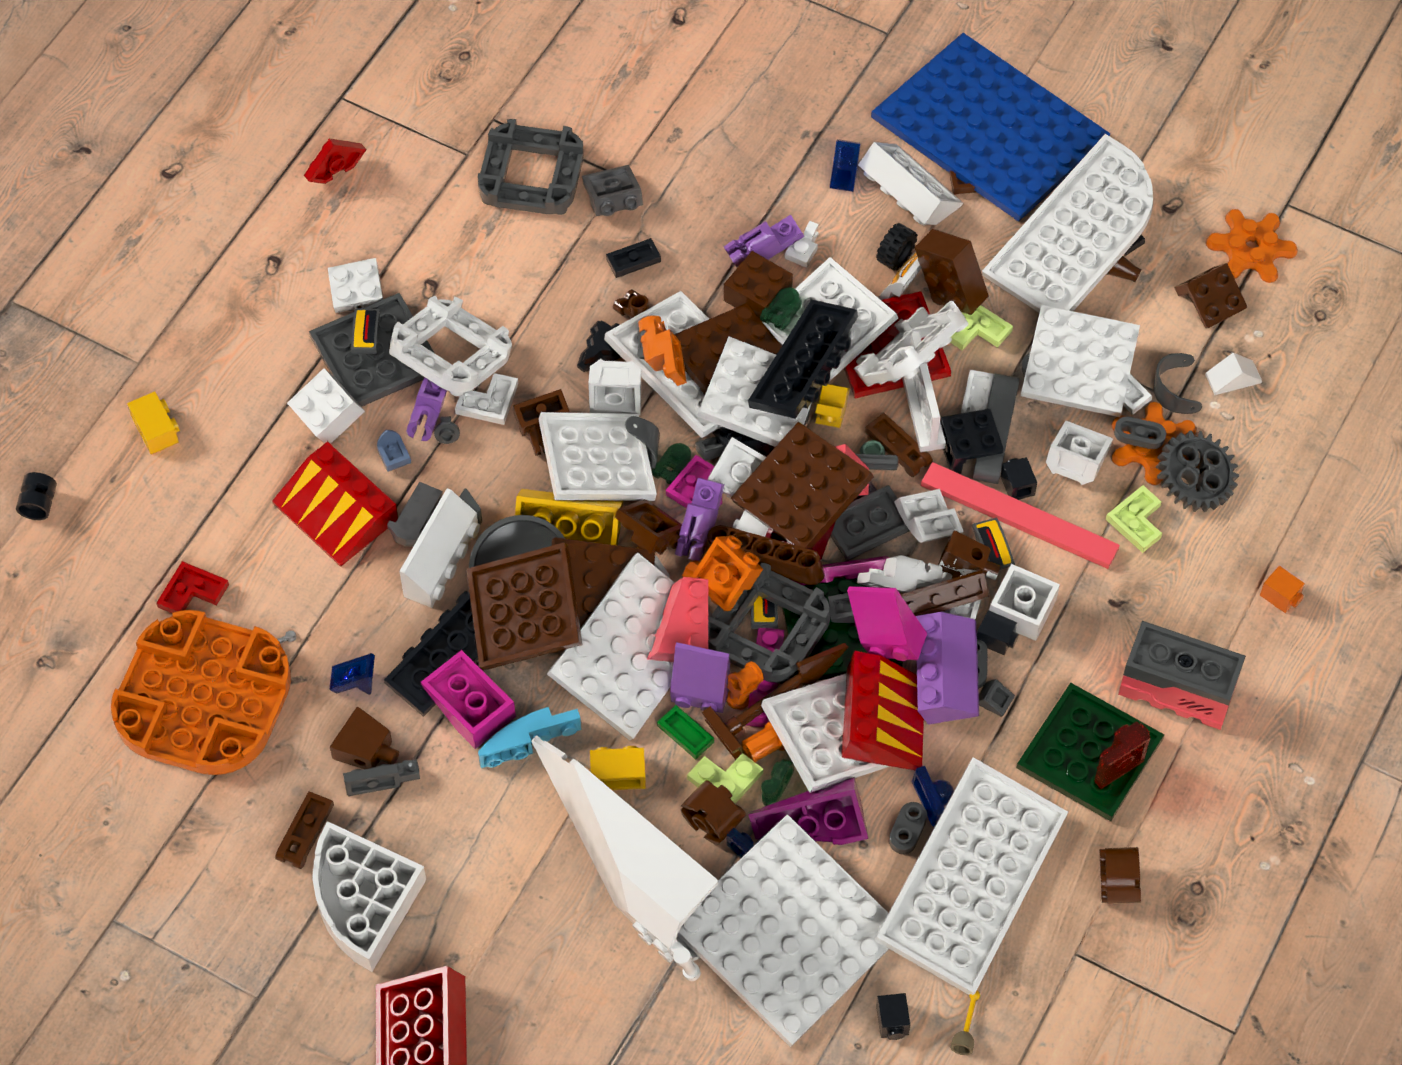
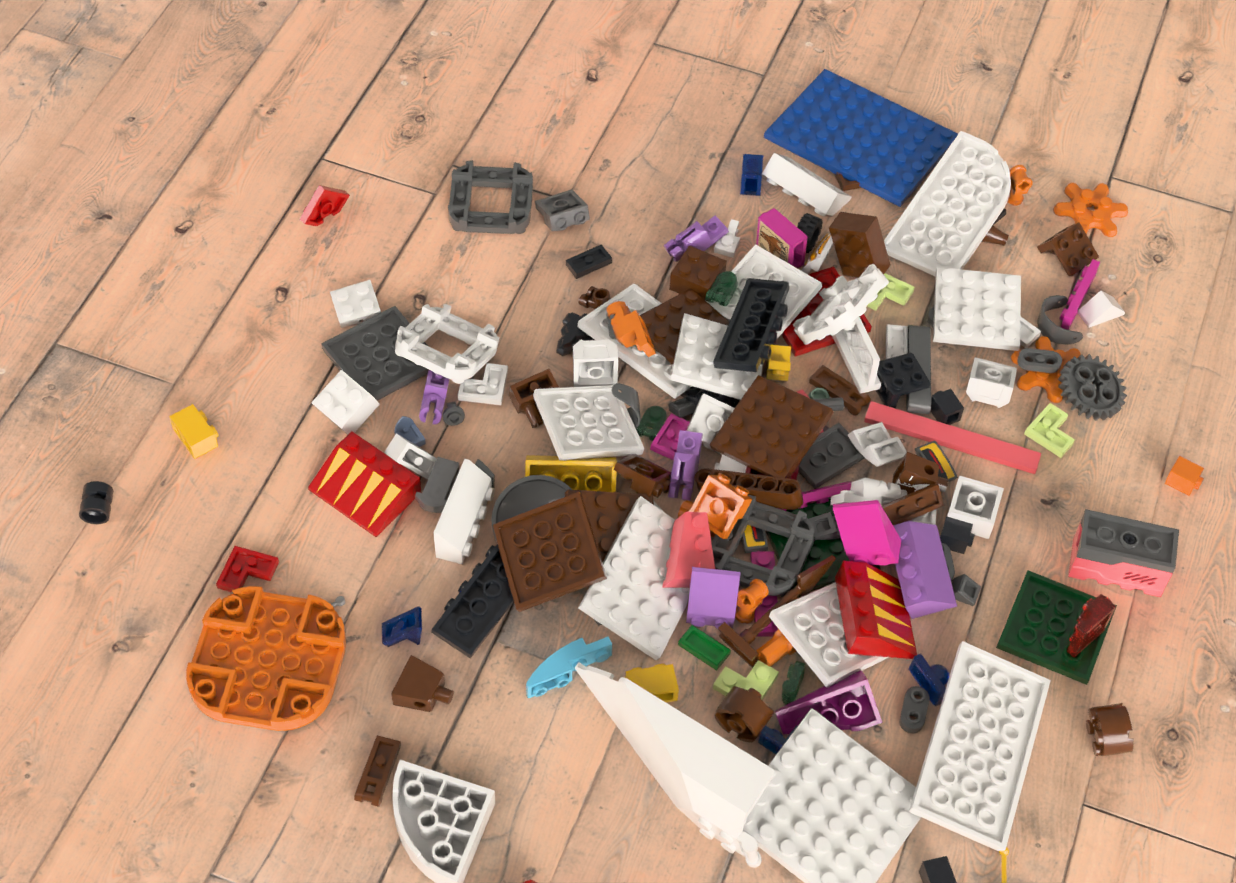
camera: 10 degrees left, 5 degrees down
(365, 331) = (371, 338): slope -> none
(380, 777) = (440, 716): dark grey hinge -> none
(390, 476) = (411, 456): none -> white slope
(469, 699) = (511, 638): dark pink slope -> none
(863, 253) = (781, 238): none -> dark pink brick
(1165, 207) = (1019, 184): none -> orange connector
(1214, 348) = (1081, 289): none -> dark pink plate

